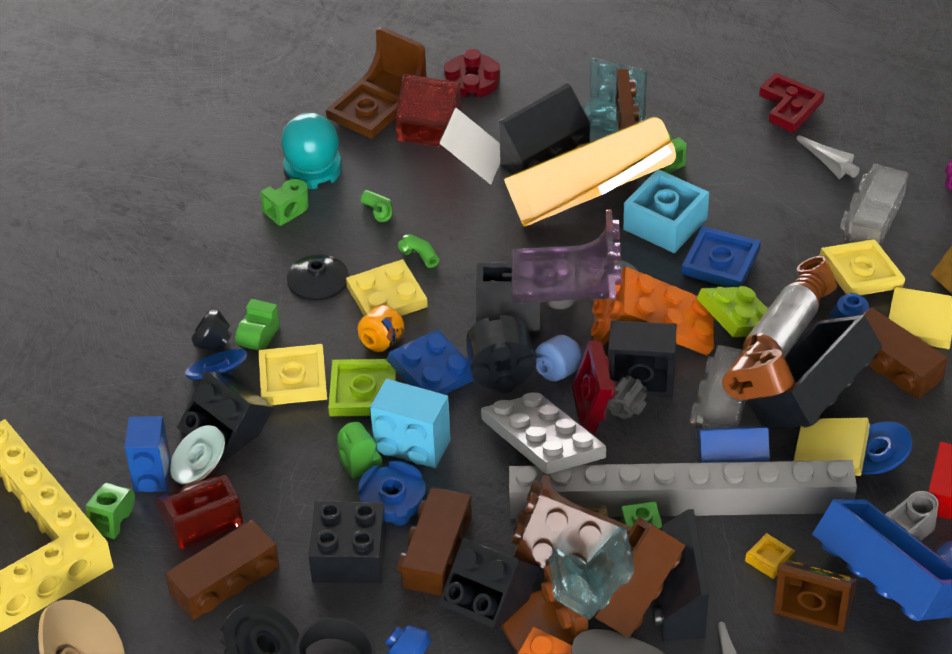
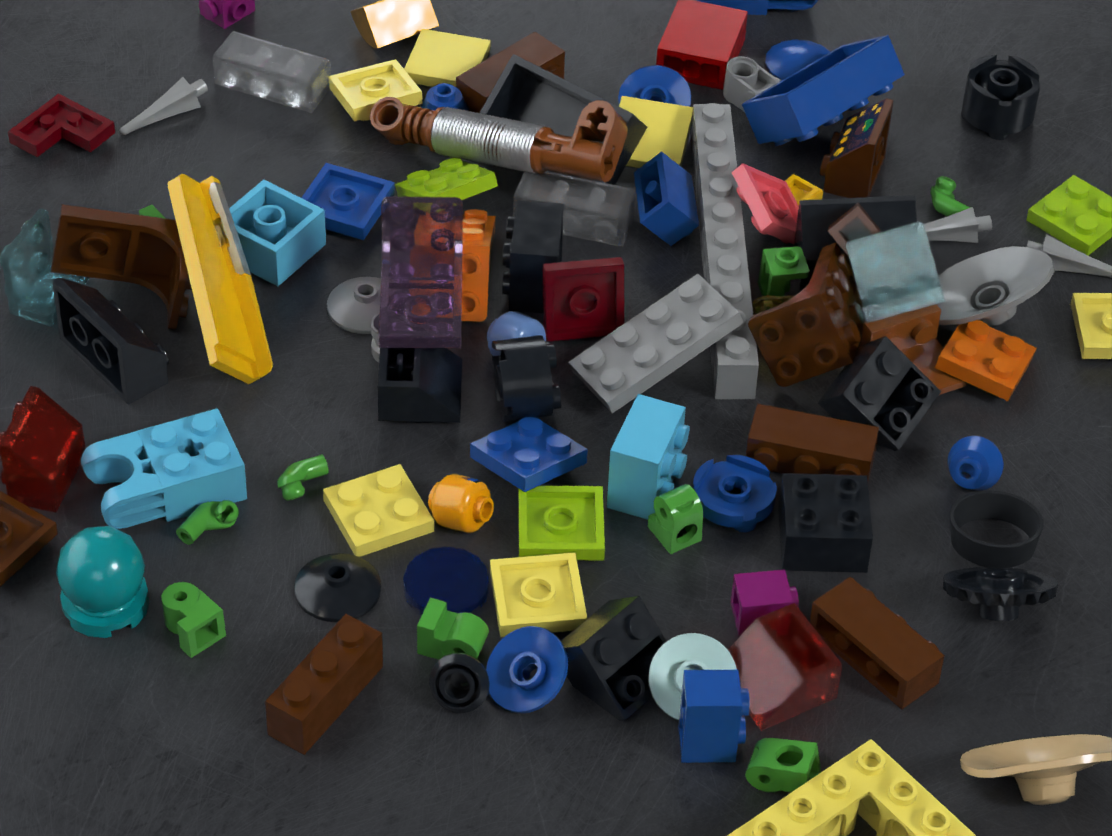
camera: 95 degrees left, 0 degrees up
(216, 263) = (324, 684): none -> reddish brown brick
(270, 500) = (760, 594): none -> magenta brick
(311, 326) = (448, 576): none -> clear blue tile
(418, 181) = (166, 470): none -> medium azure brick
(472, 145) = (115, 409): white sticker -> none
(724, 516) = (769, 201): none -> coral plate

